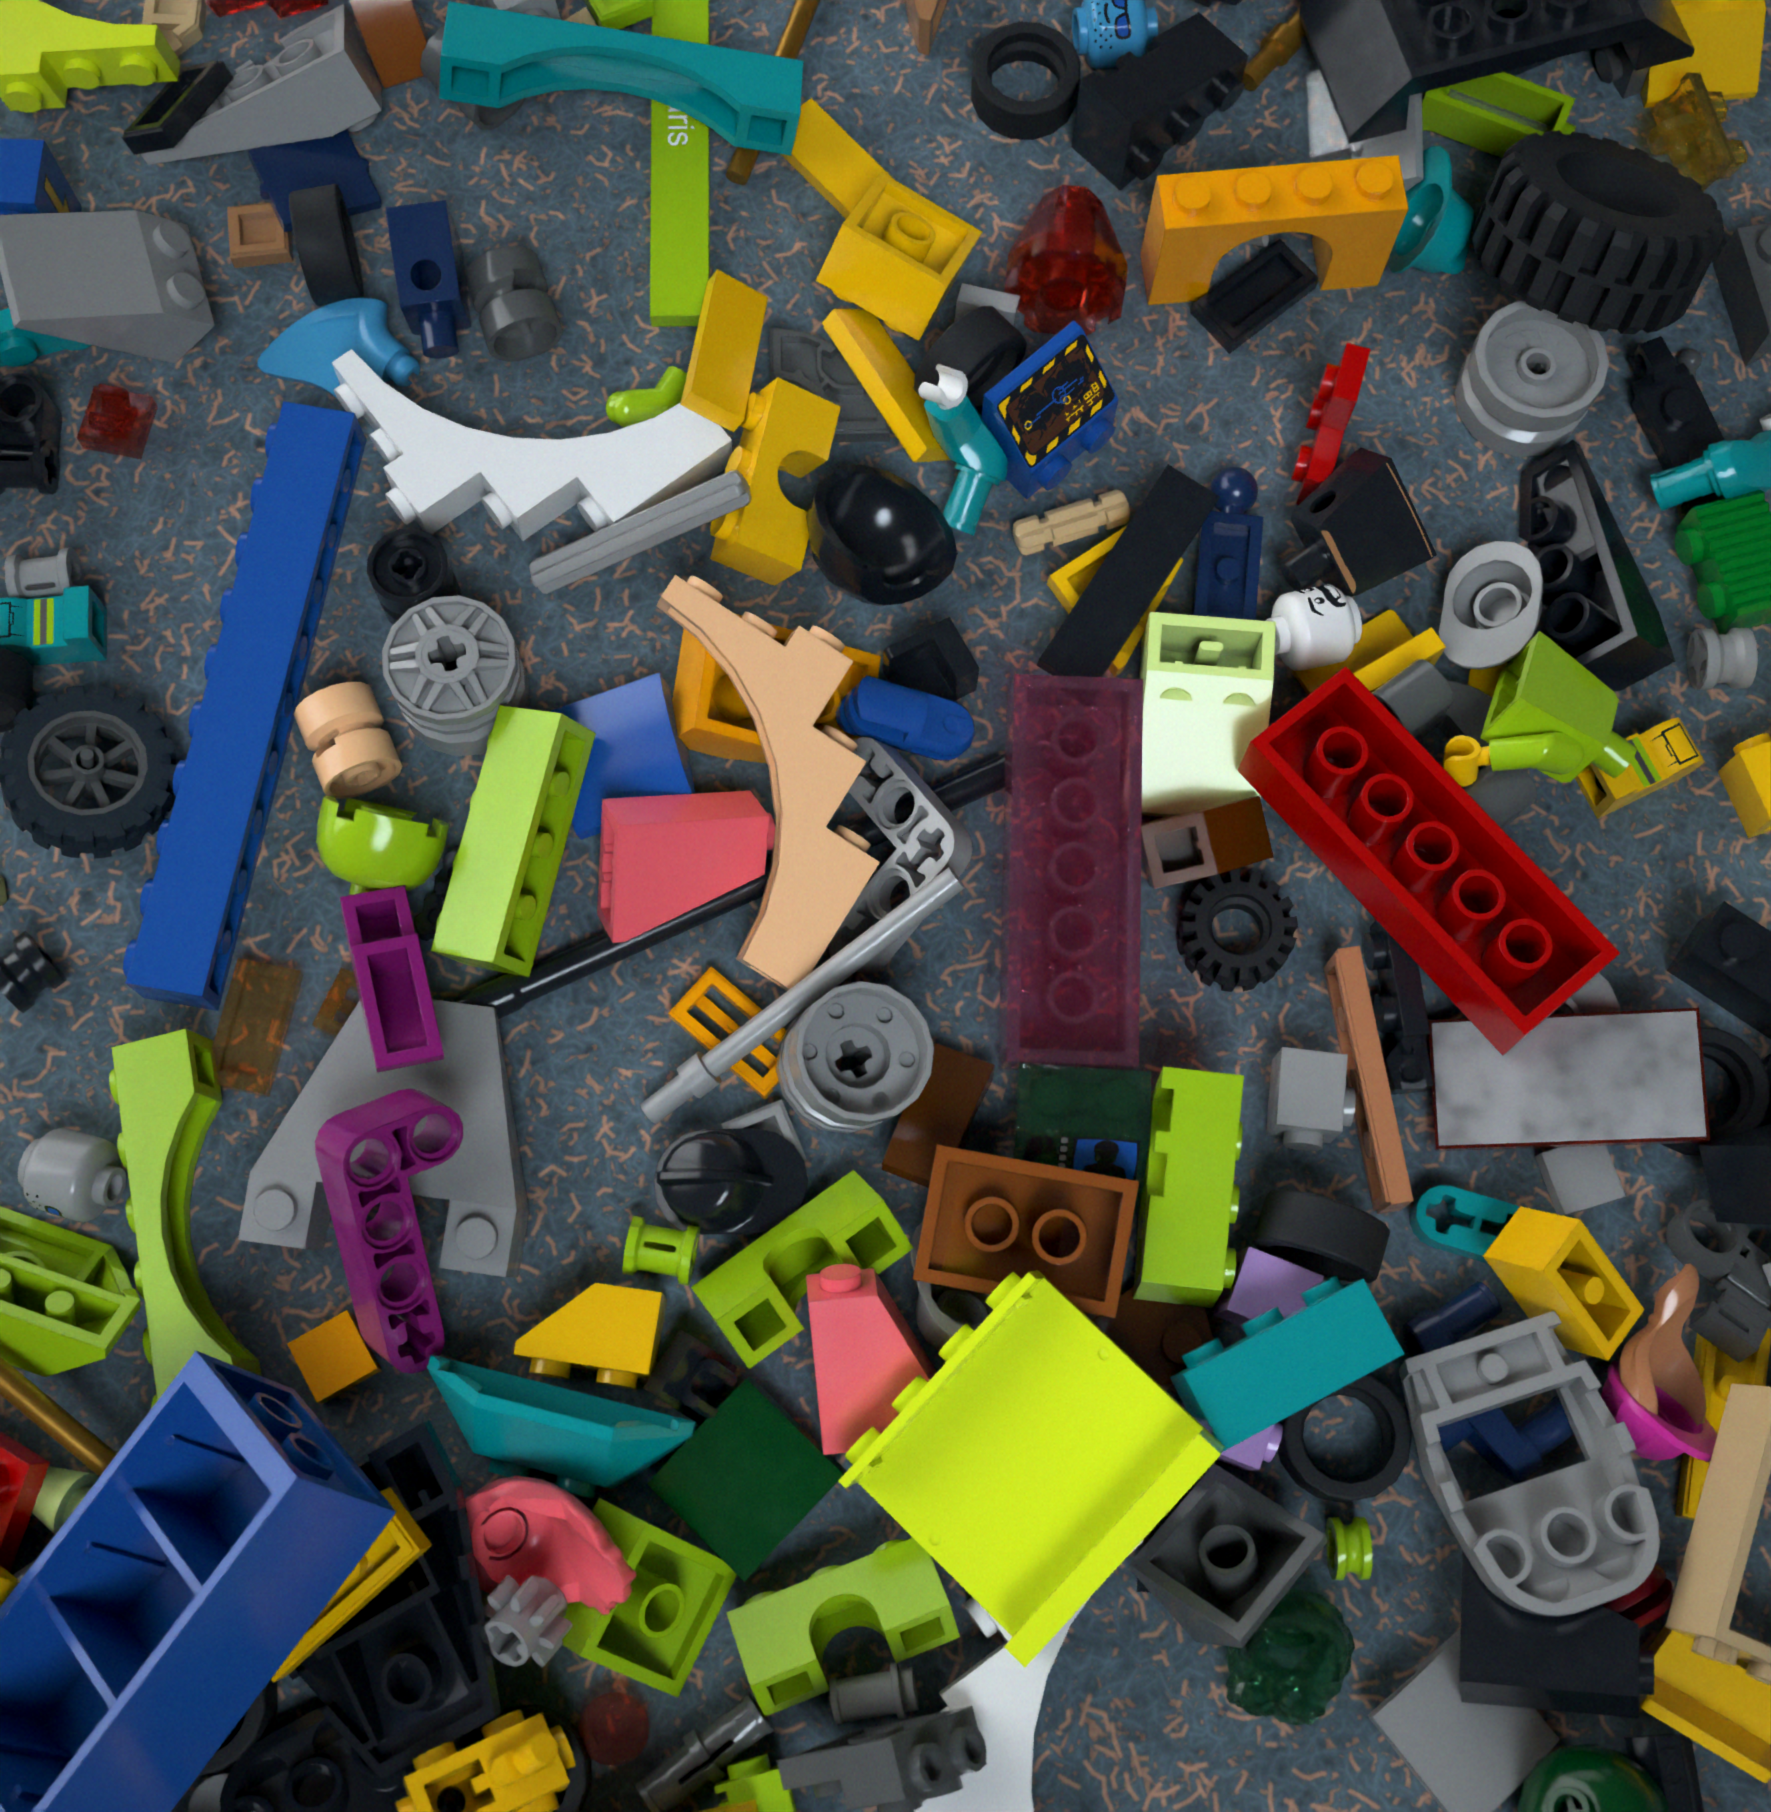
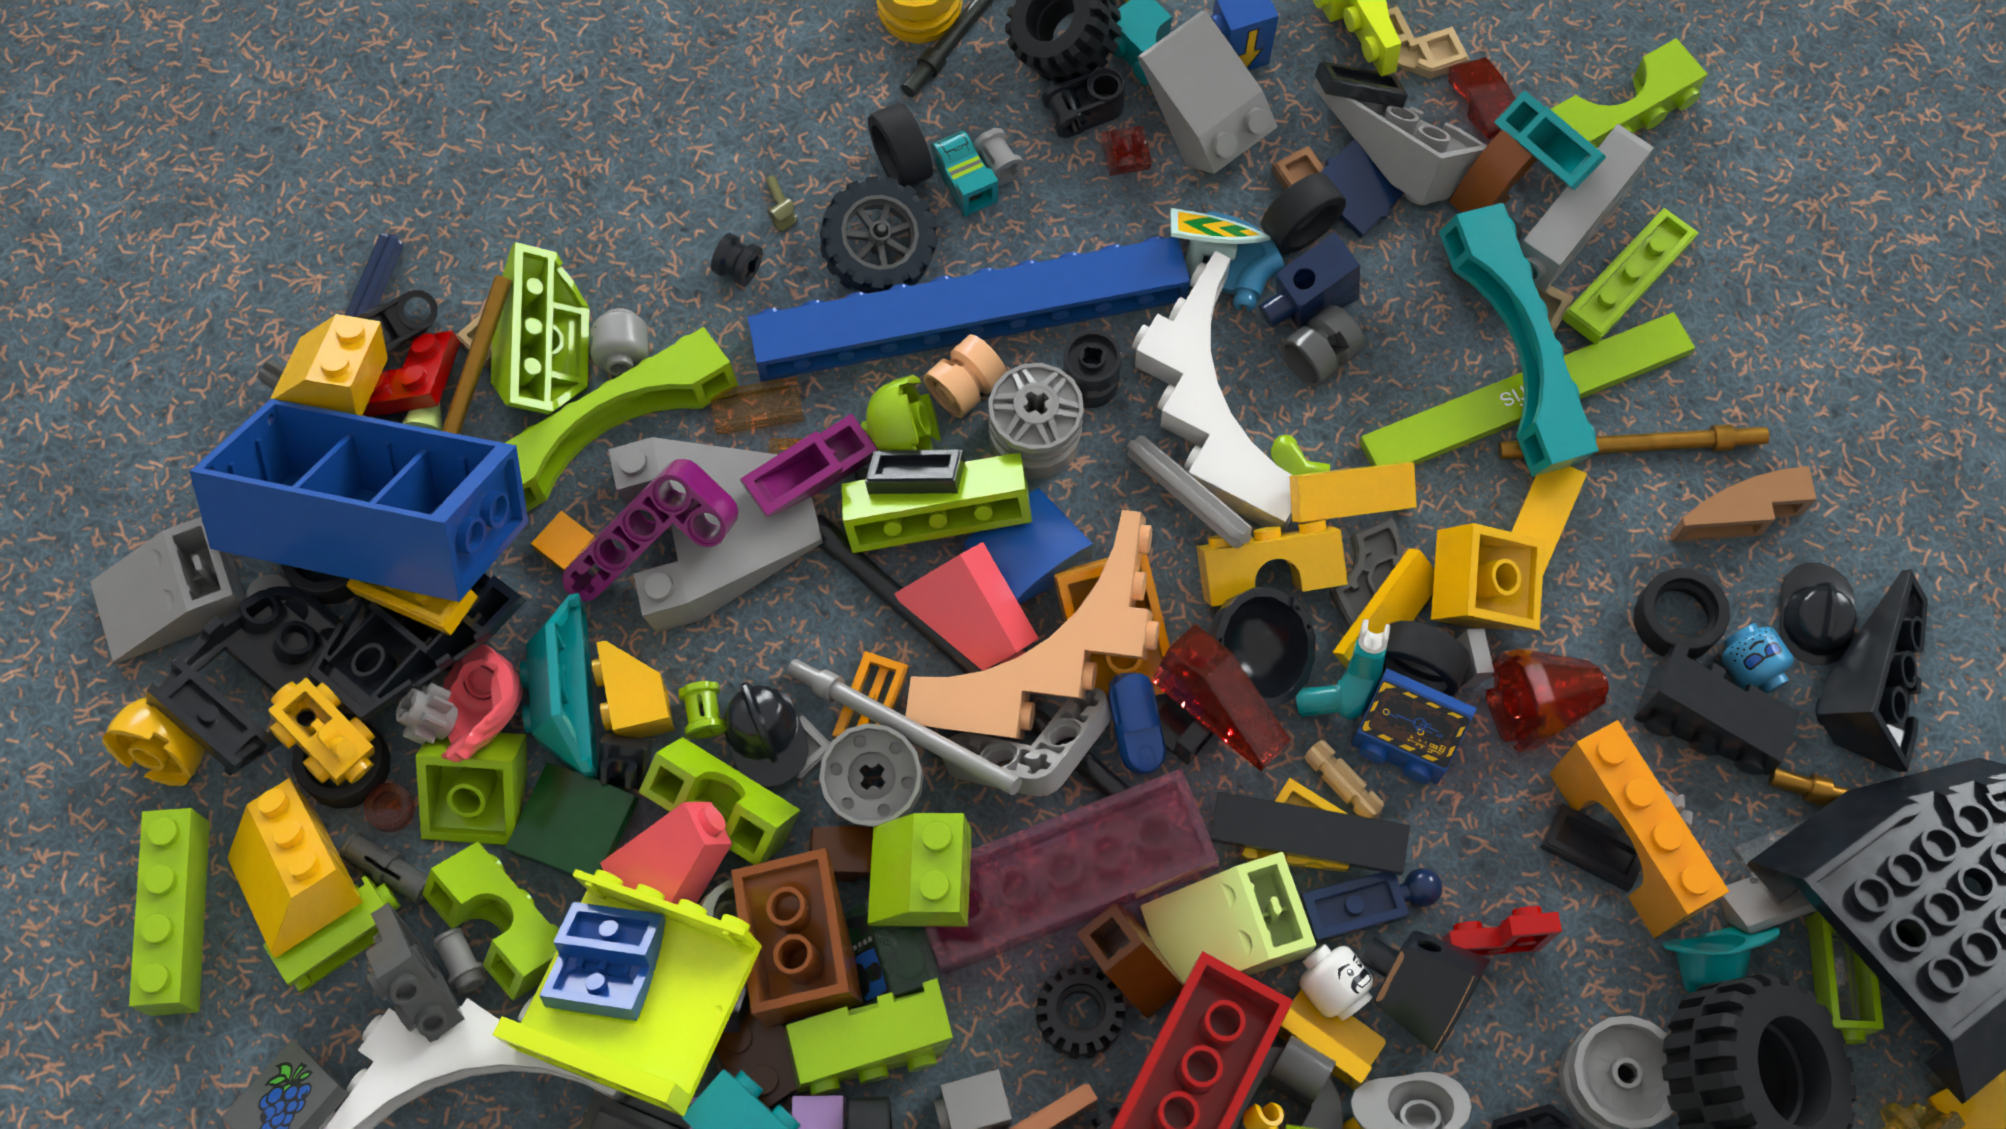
camera: 70 degrees right, 5 degrees down
(298, 364) = (1210, 234): none -> light aqua shield
(465, 845) = (915, 471): none -> black tile
(926, 600) = (1221, 696): none -> clear red slope
(974, 1486) = (604, 961): none -> blue slope
(1017, 1037) = (921, 871): none -> lime slope

